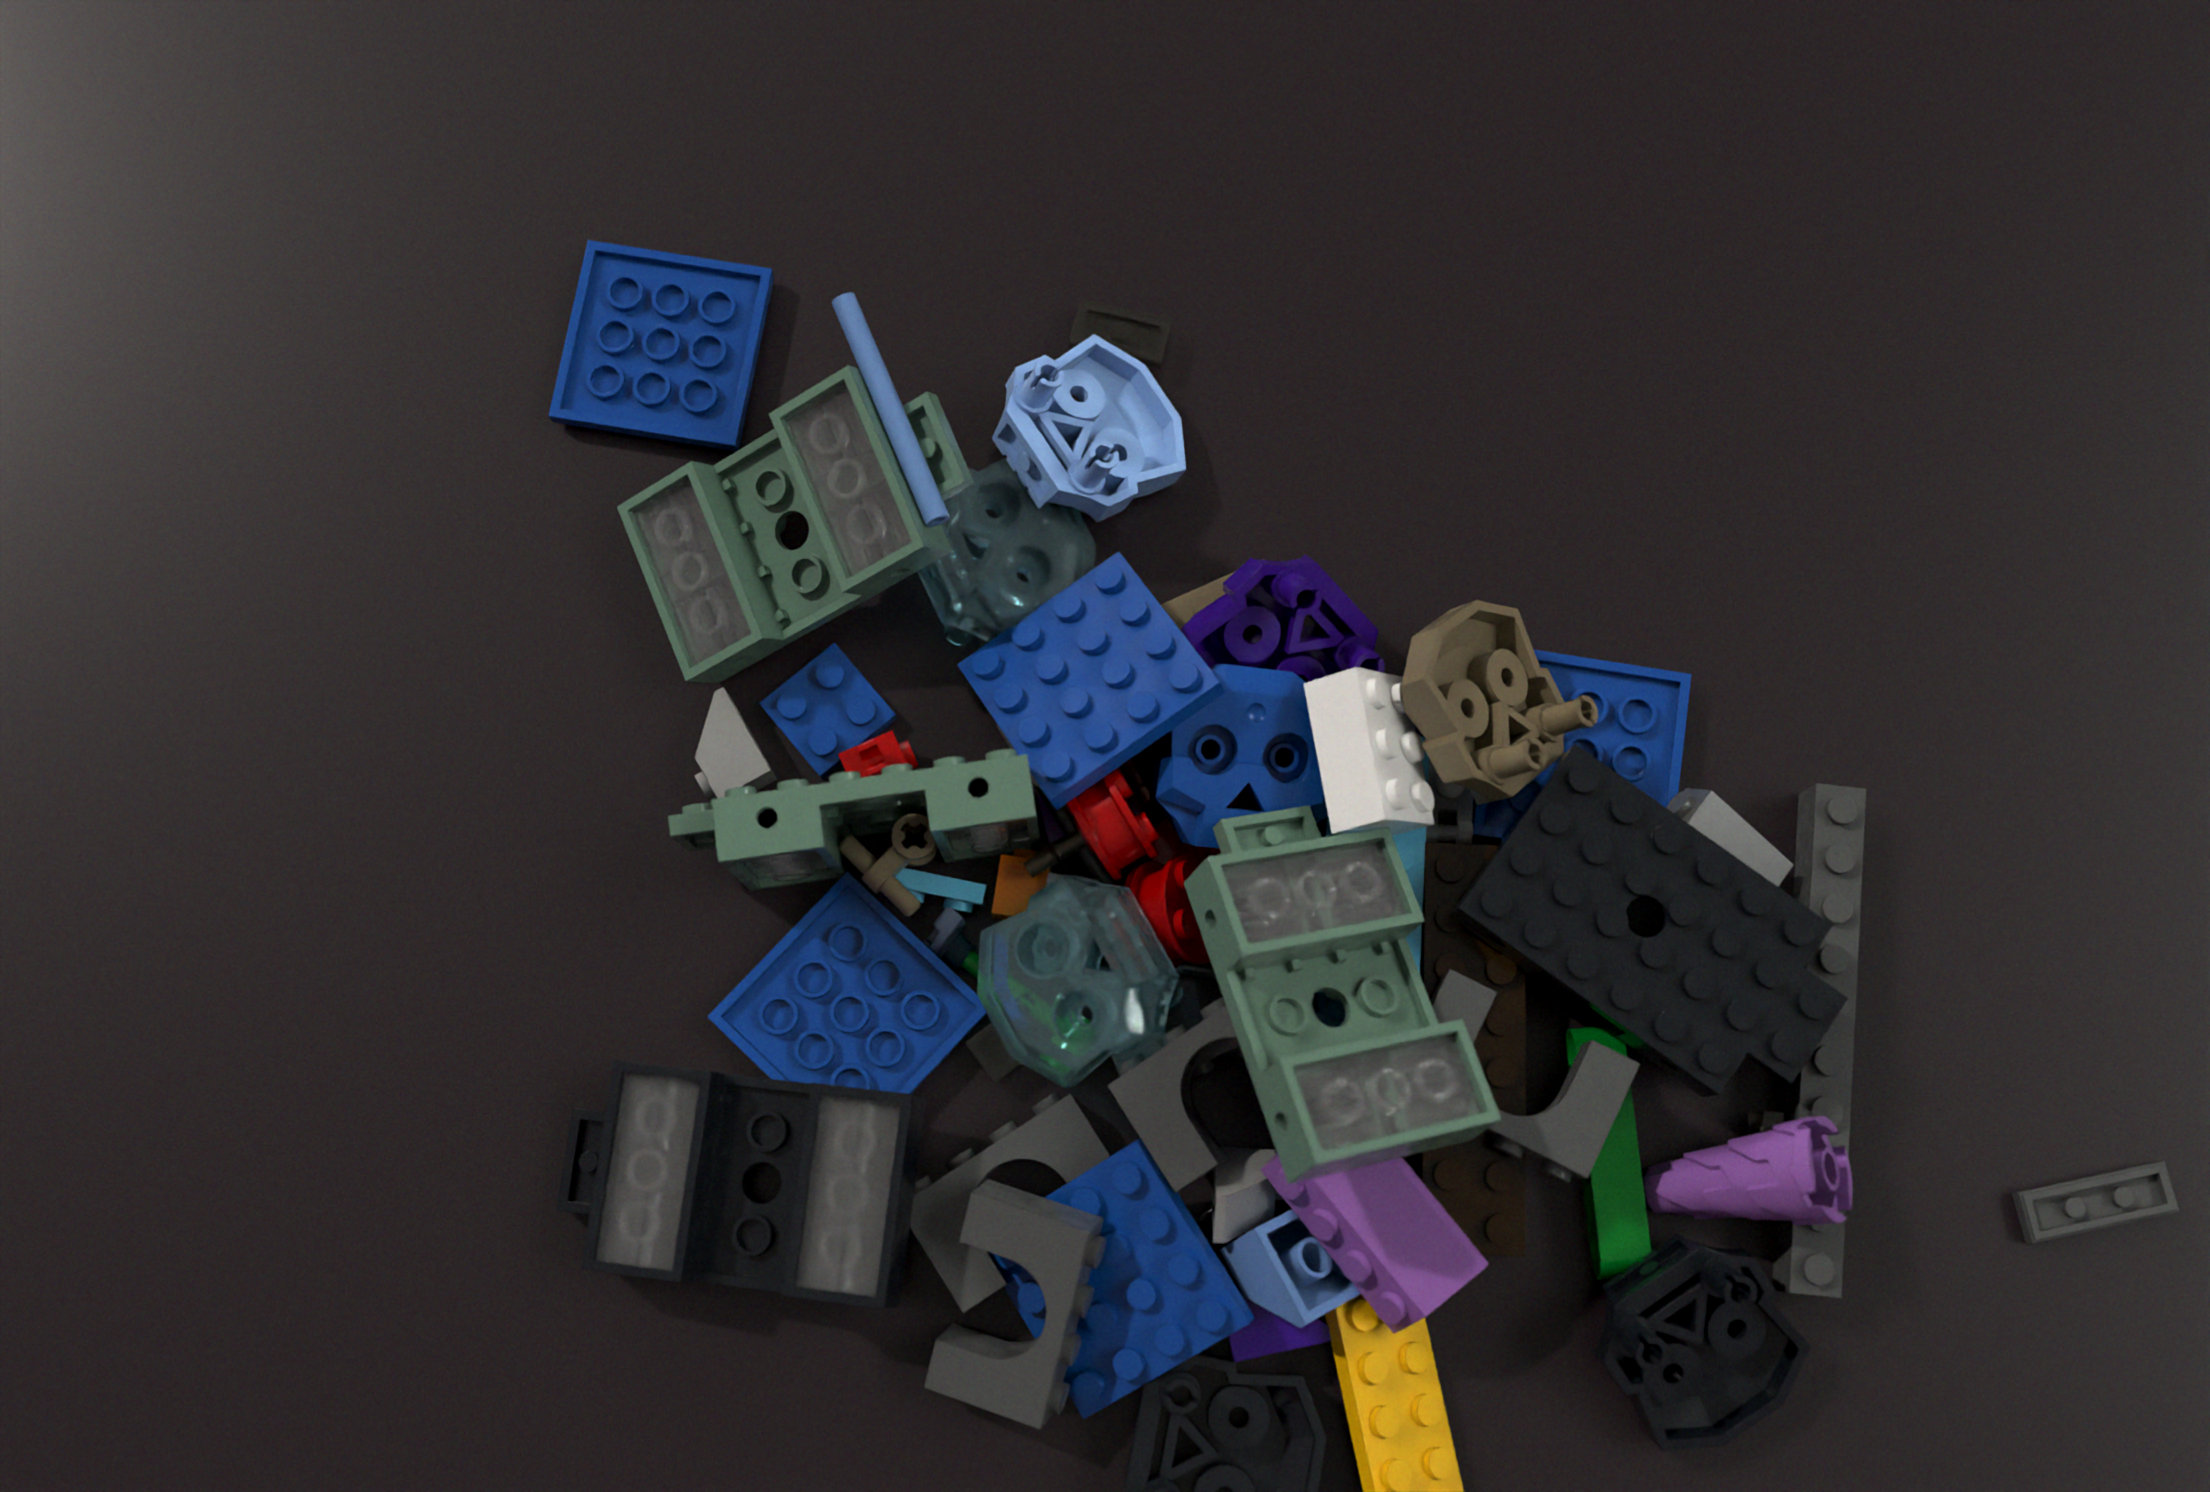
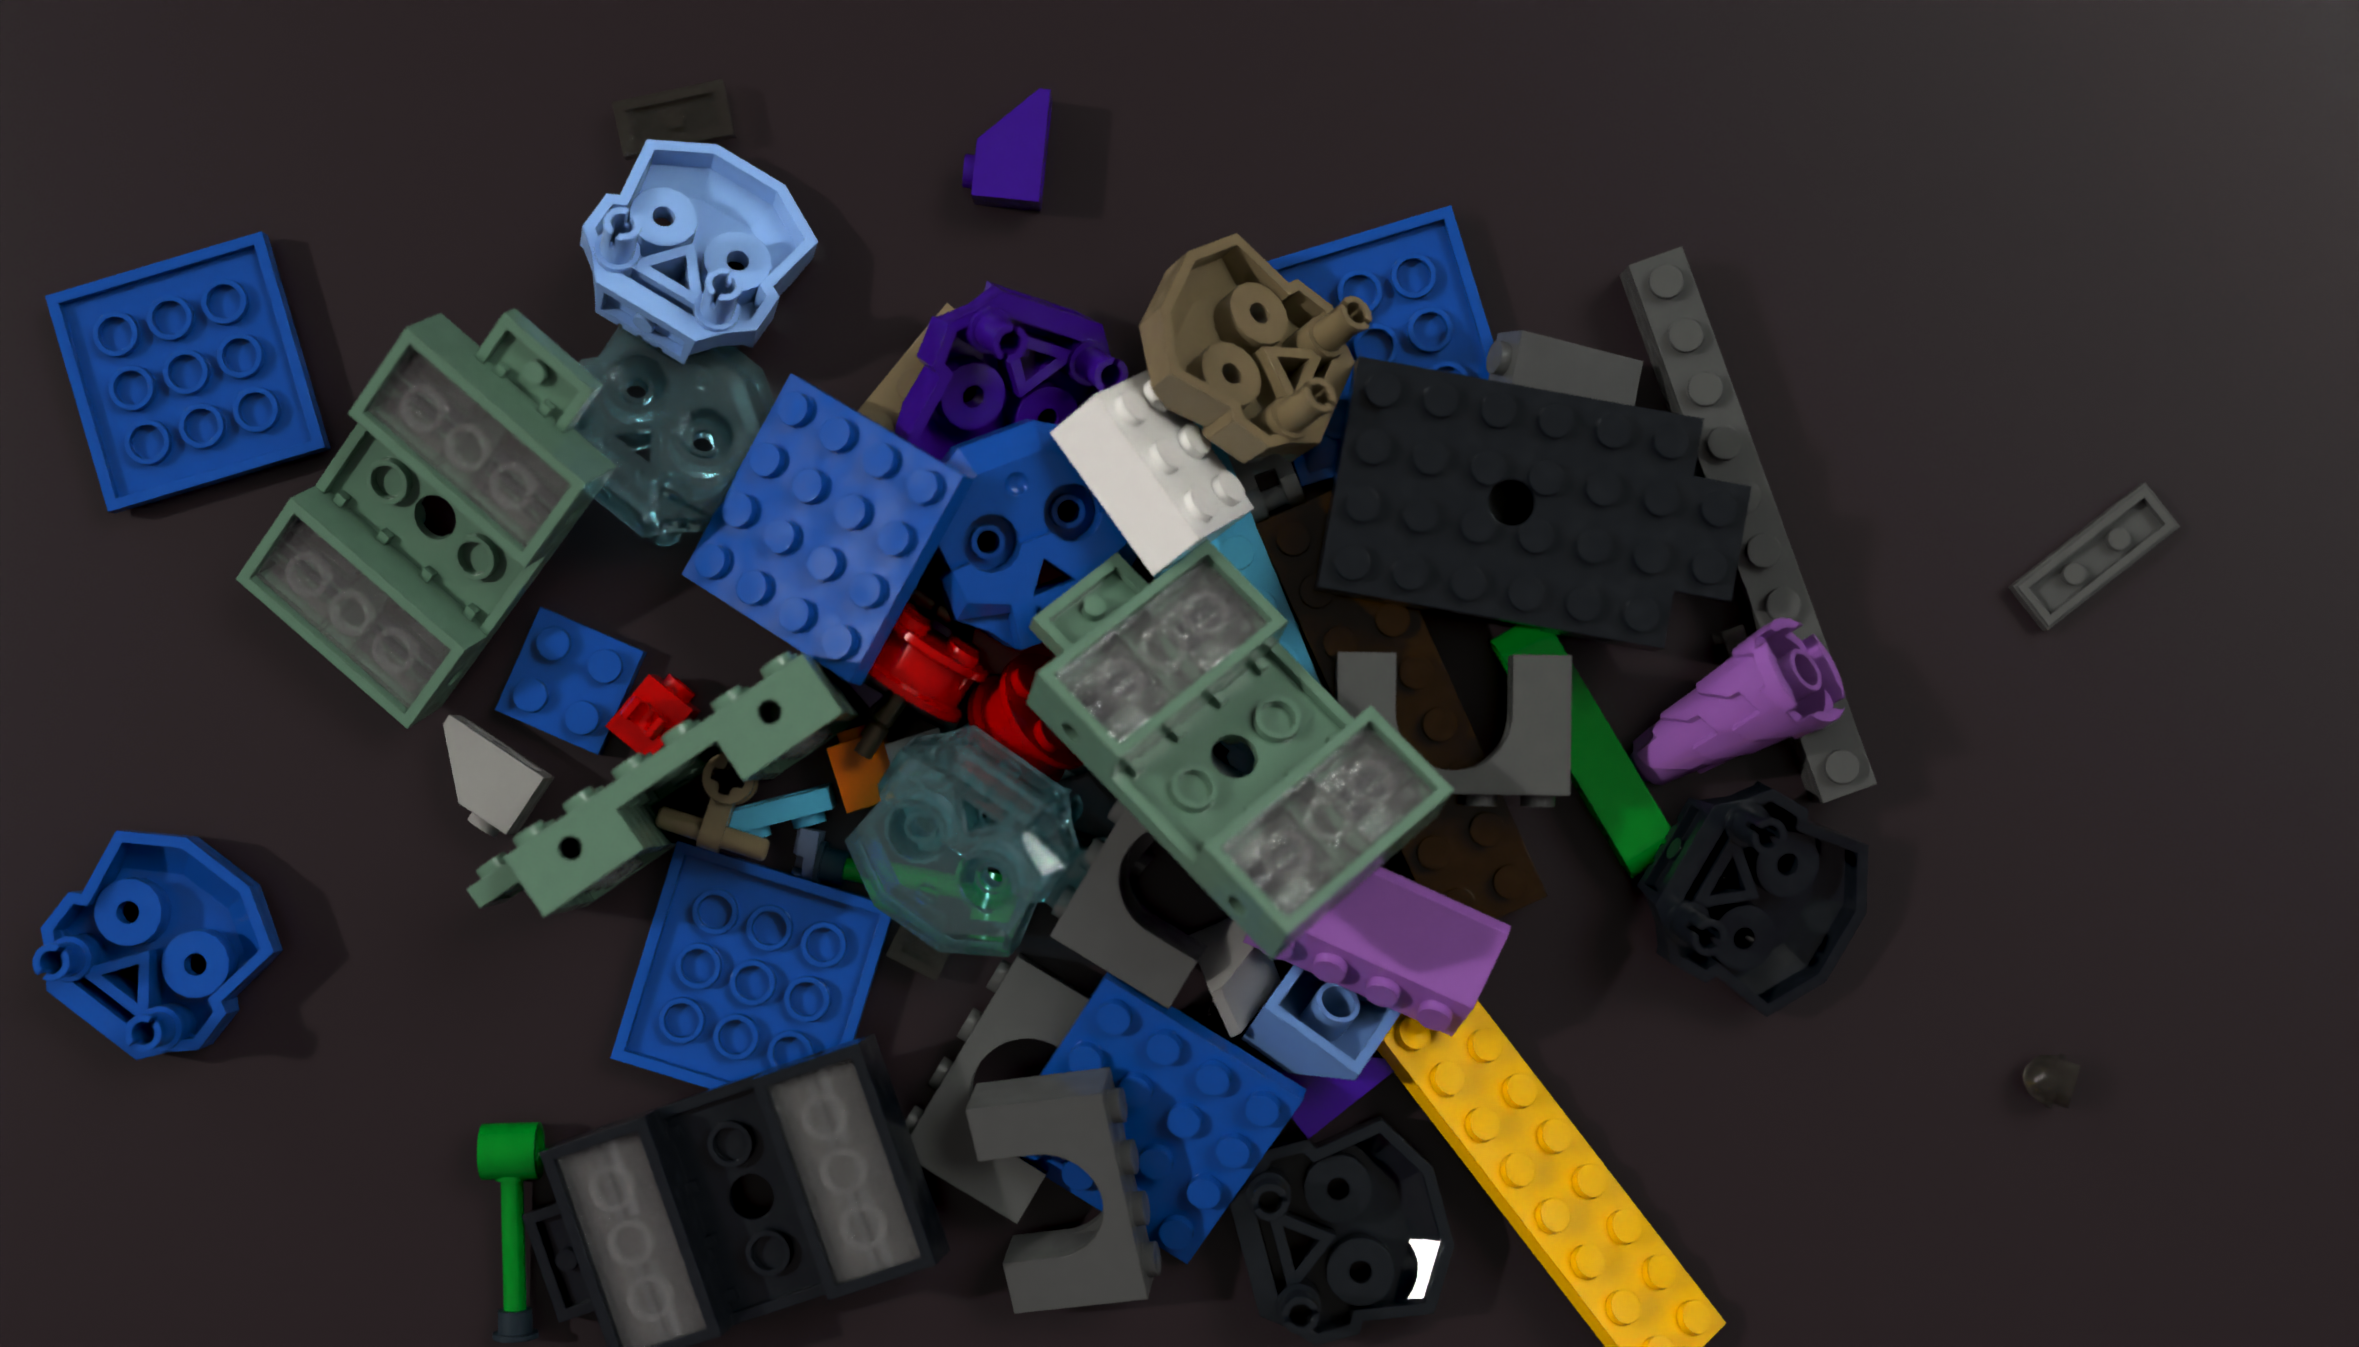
camera: 25 degrees left, 10 degrees up
(446, 738) = (186, 906): none -> blue brick
(588, 1056) = (511, 1156): none -> green piece
(890, 410) = (474, 350): medium blue piece -> none
(1364, 479) = (1012, 157): none -> dark purple slope

